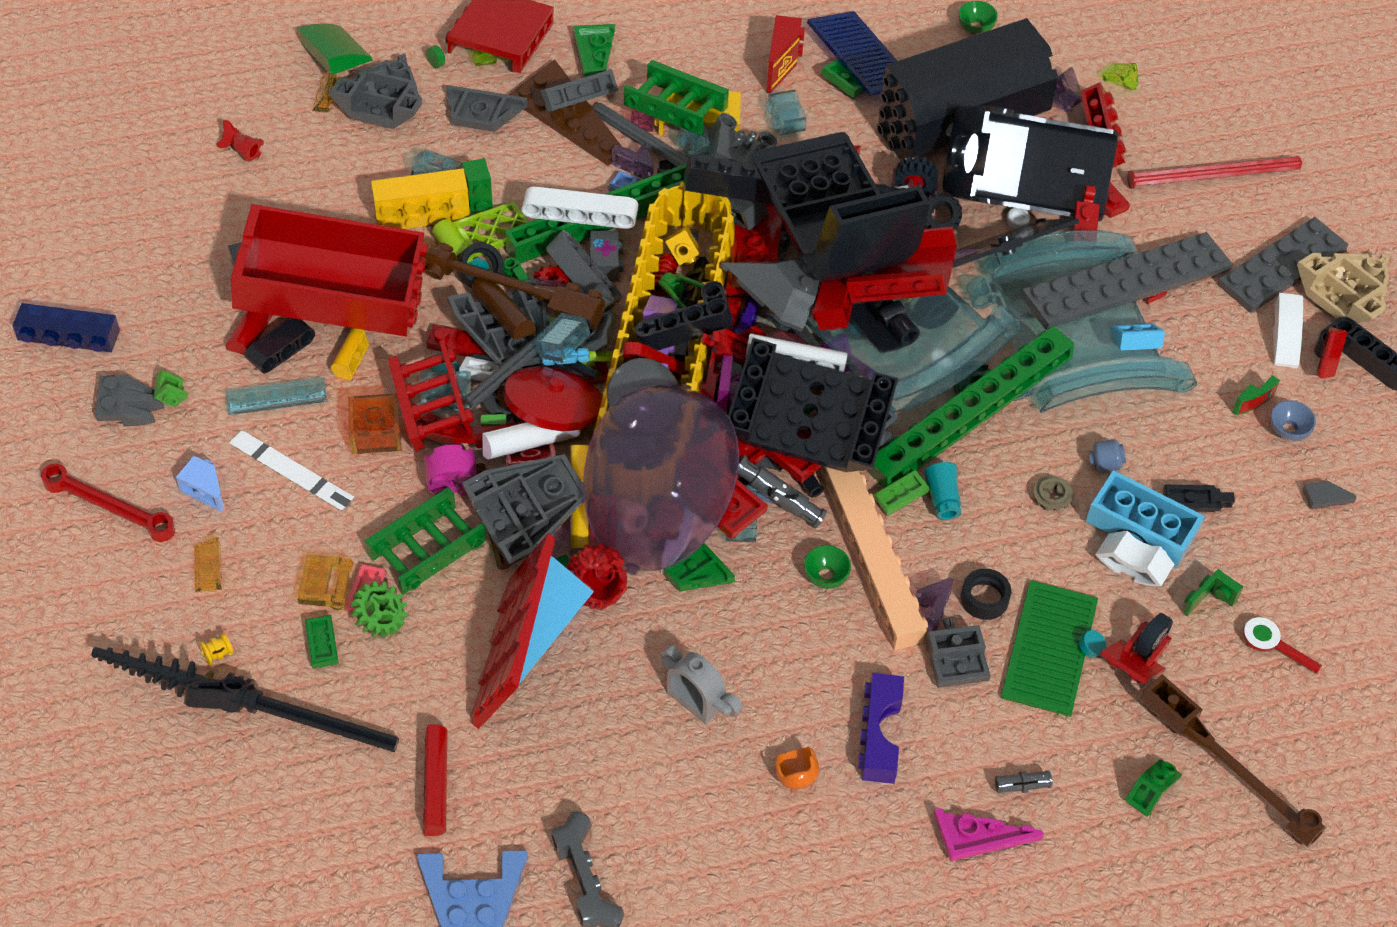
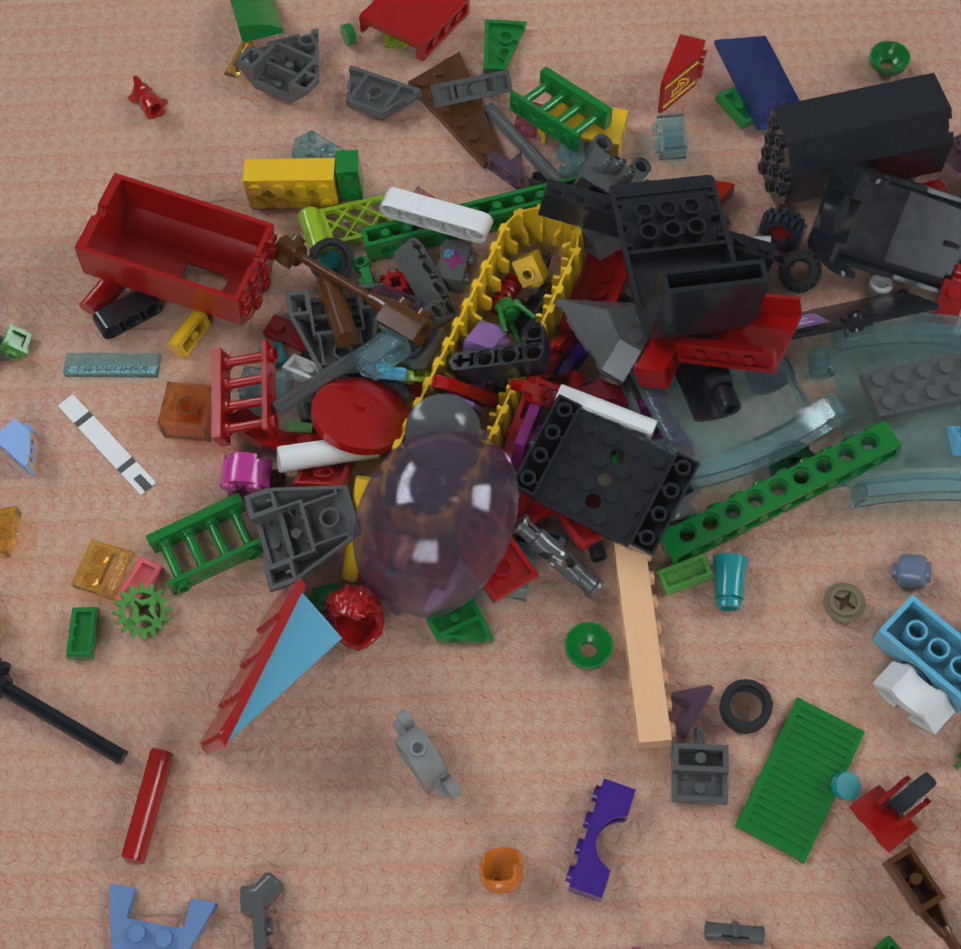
camera: 20 degrees right, 10 degrees up
(622, 179) = (491, 188): medium blue tile -> none

